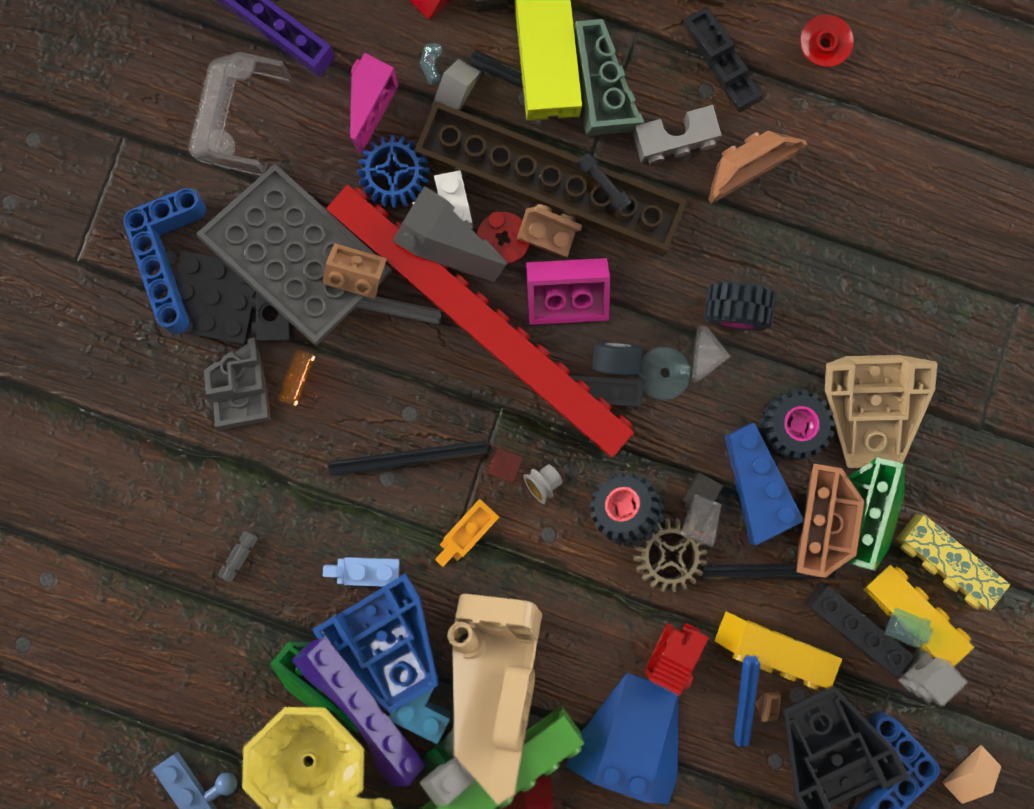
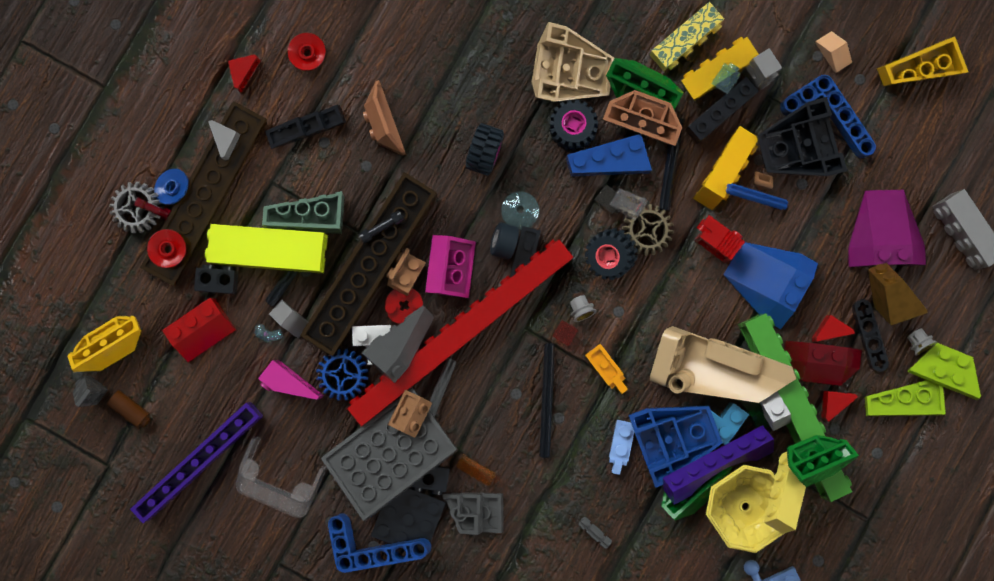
camera: 75 degrees left, 0 degrees up
(655, 143) = (357, 185): light grey arch -> none
(707, 354) = (513, 177): clear slope -> none

